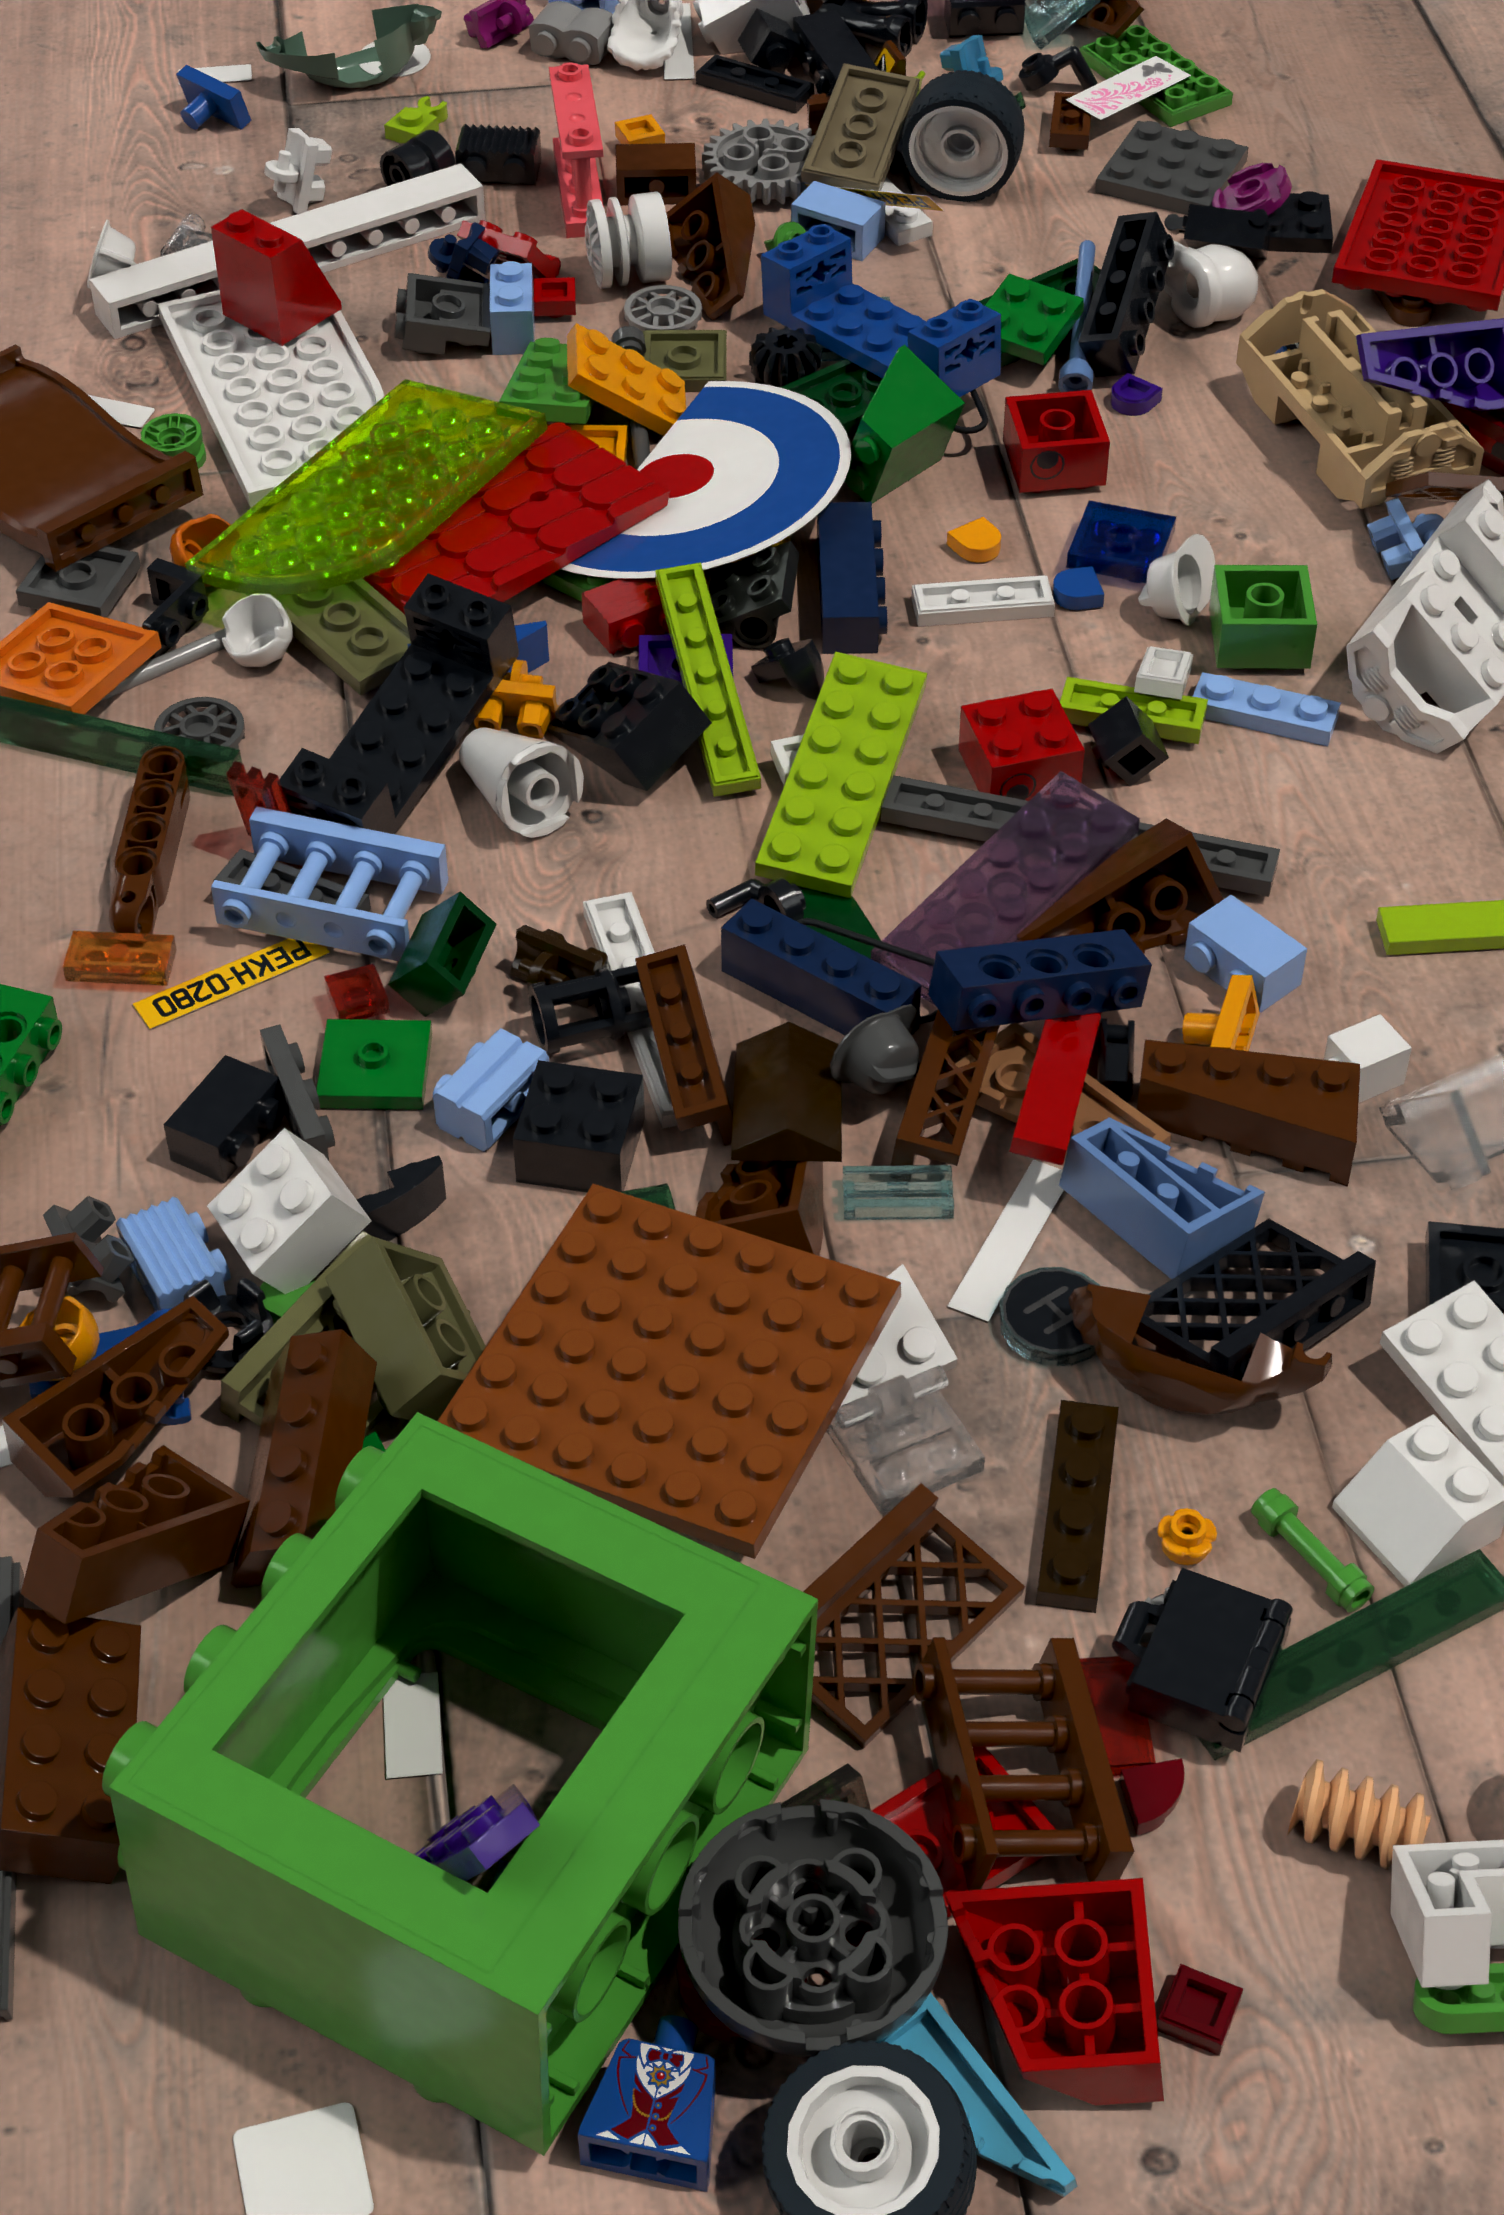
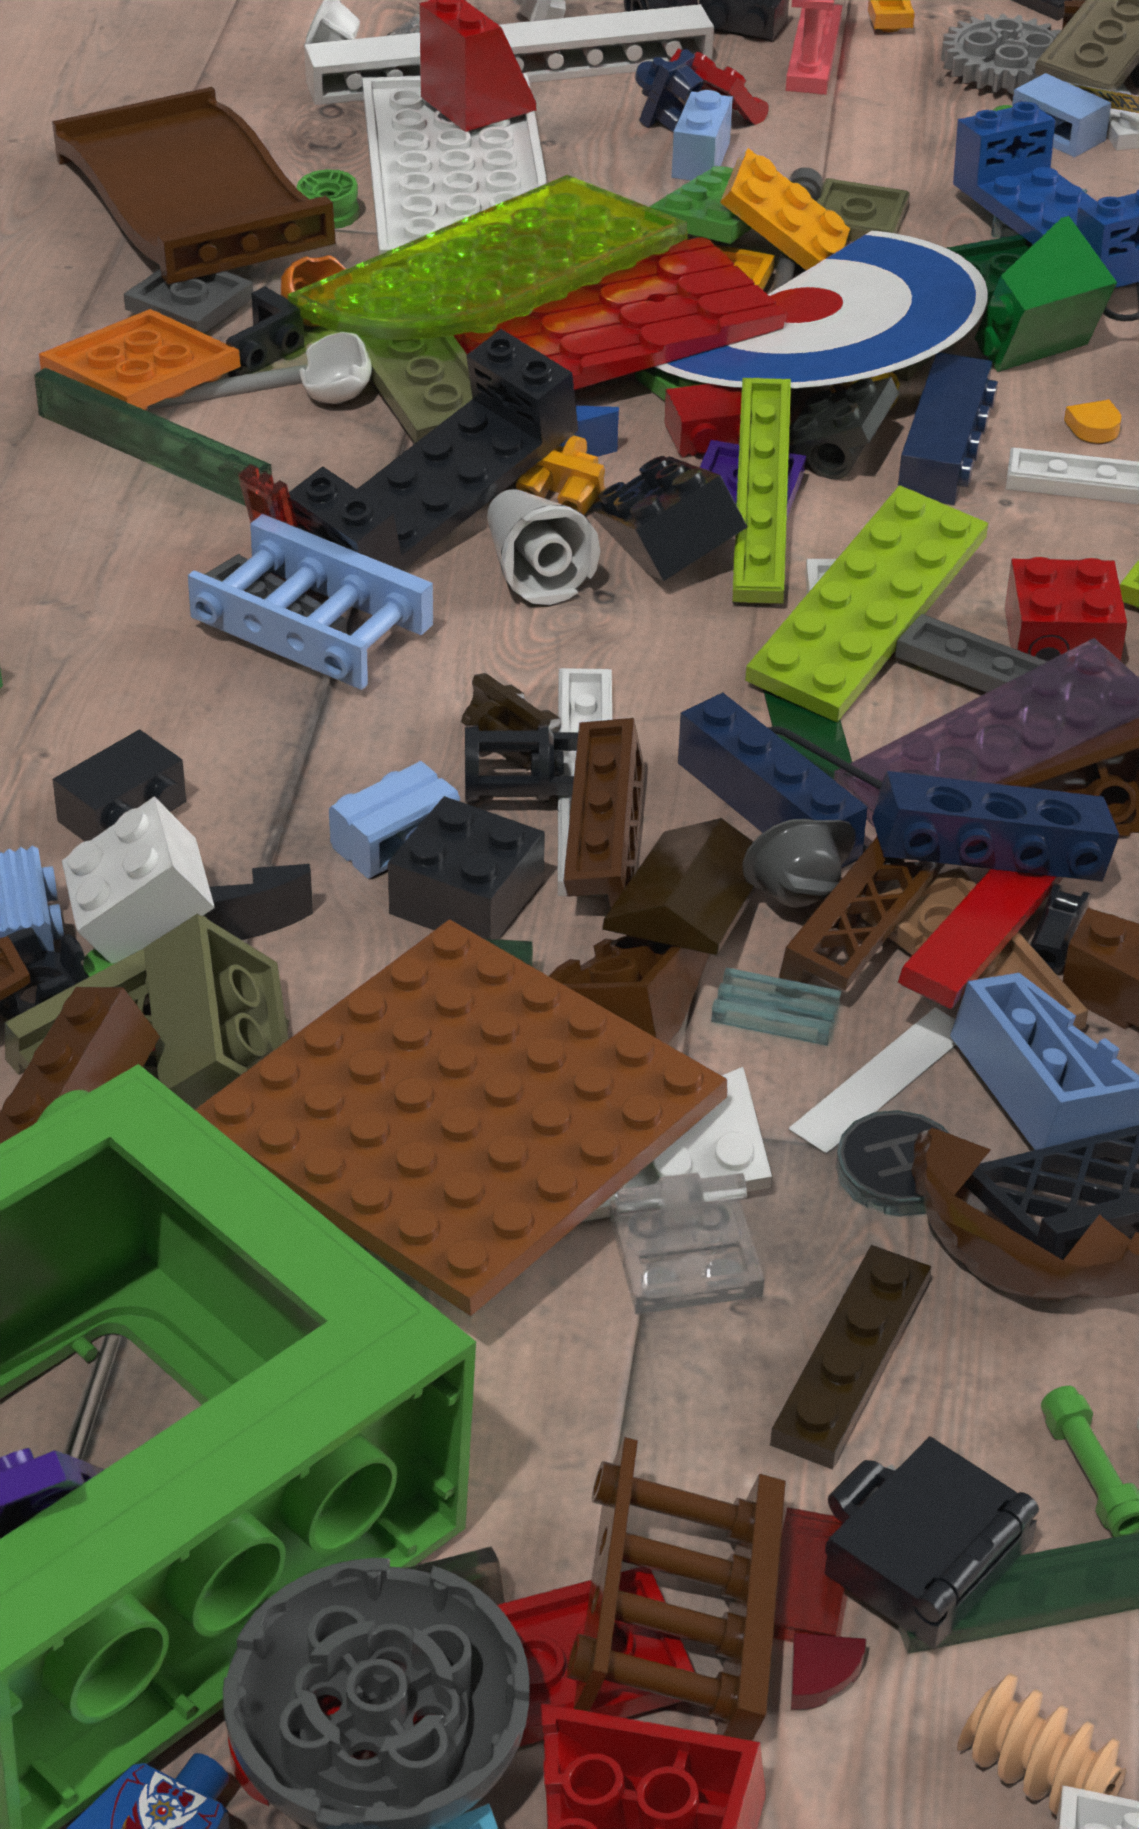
camera: 15 degrees right, 5 degrees down
(119, 958) = (83, 628): clear orange plate -> none
(124, 412) = (292, 165): white sticker -> none
(149, 840) = (154, 533): reddish brown piece -> none
(204, 725) = (262, 444): dark grey wheel -> none
(227, 980) = (182, 672): yellow sticker -> none
(297, 1094) = (199, 783): dark grey plate -> none
(357, 993) = (298, 707): clear red plate -> none
(374, 1064) = (290, 774): green plate -> none
(413, 1727) = (67, 1405): white sticker -> none
(442, 311) = (629, 126): dark grey plate -> none
(442, 954) = (394, 685): dark green brick -> none
(554, 297) = (749, 133): red plate -> none
(628, 240) = (838, 93): white wheel -> none
(654, 168) = (892, 46): reddish brown brick -> none
(663, 309) = (869, 167): light grey wheel -> none
(713, 242) = (924, 110): reddish brown wedge -> none
(777, 894) = (754, 698): black plate -> none
(783, 356) = (957, 220): black gear -> none
(796, 662) = (859, 493): black plate -> none
(862, 1569) = (585, 1360): reddish brown fence -> none
(1182, 1547) = (957, 1426): light orange plate -> none

